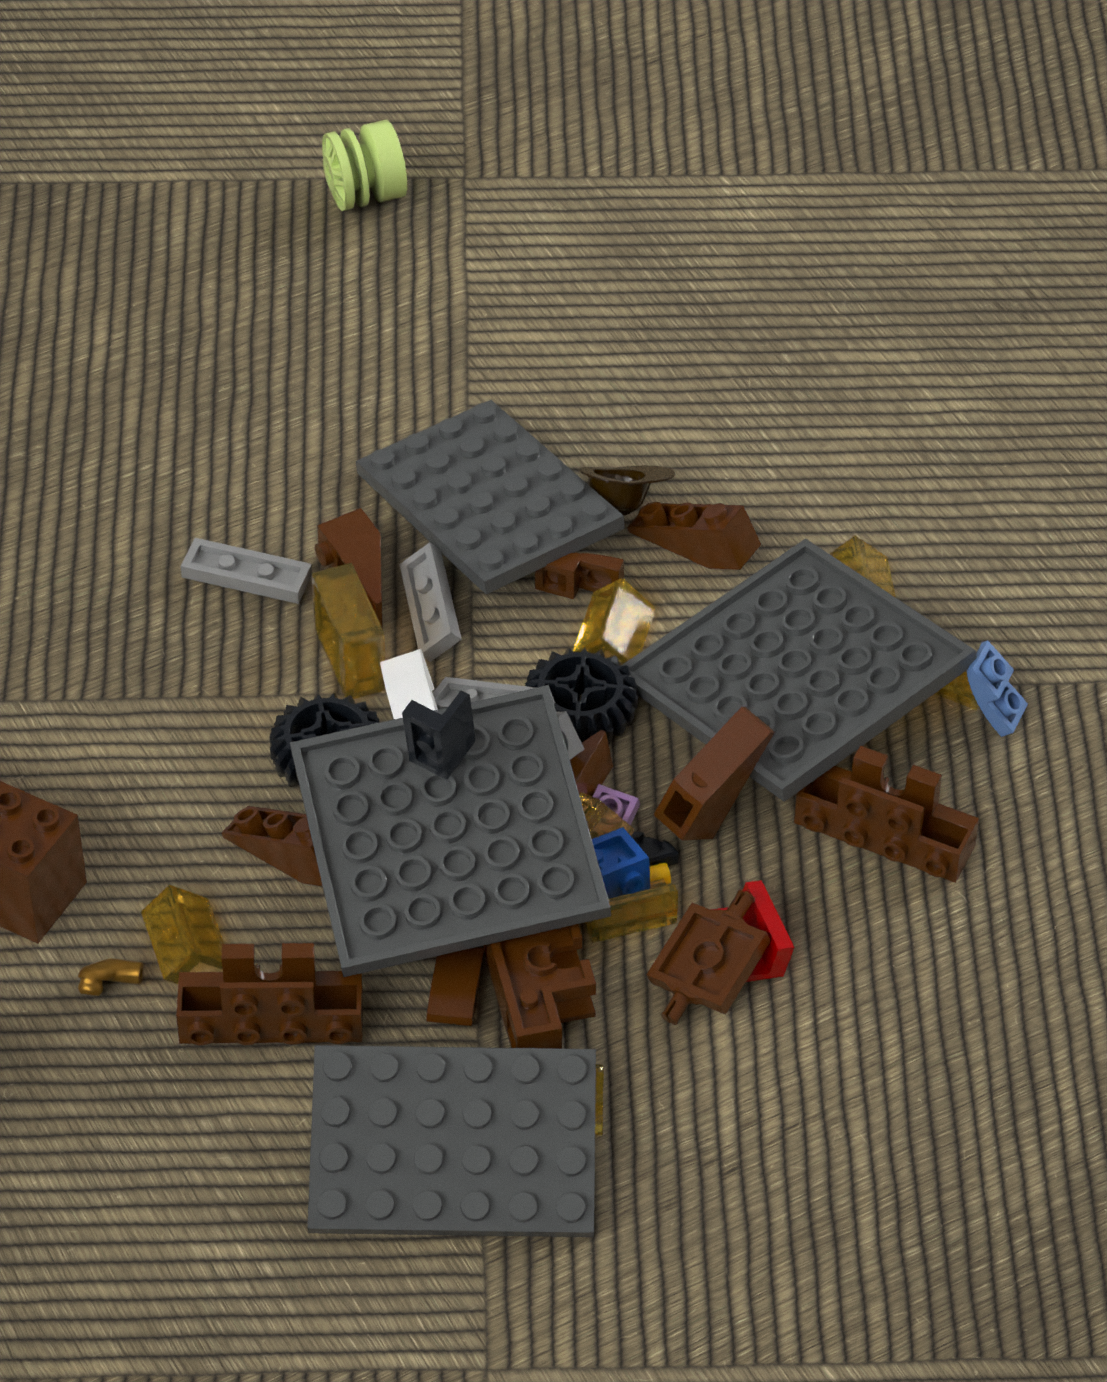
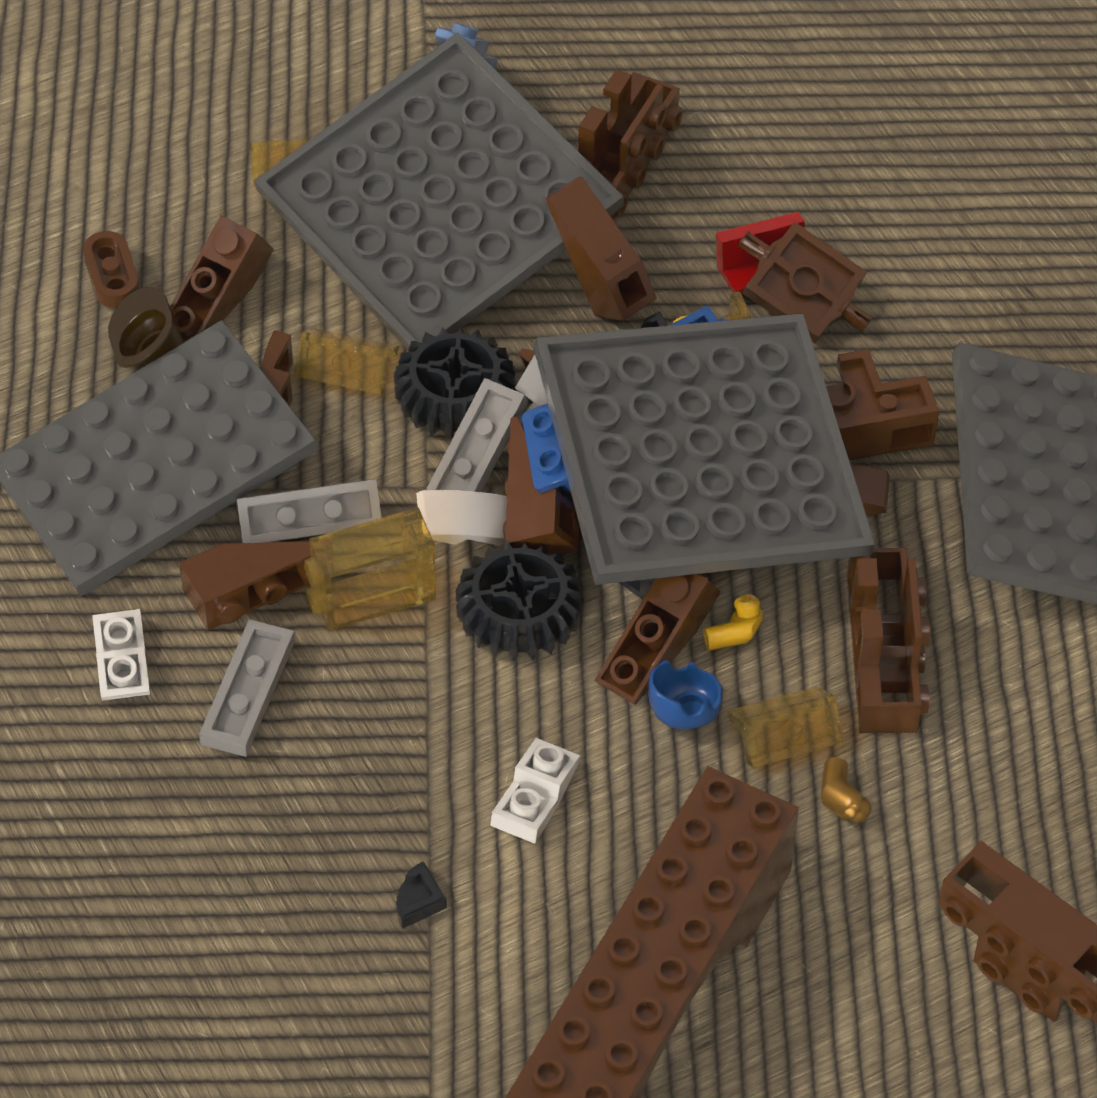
camera: 90 degrees left, 5 degrees up
(34, 689) = (419, 896): none -> black tile
(134, 765) = (535, 790): none -> white slope
(213, 853) = (684, 696): none -> blue hair
(276, 498) = (121, 655): none -> white slope
(304, 911) = (740, 627): none -> yellow arm
(436, 739) = (633, 403): black panel -> none
(712, 464) = (110, 267): none -> reddish brown plate

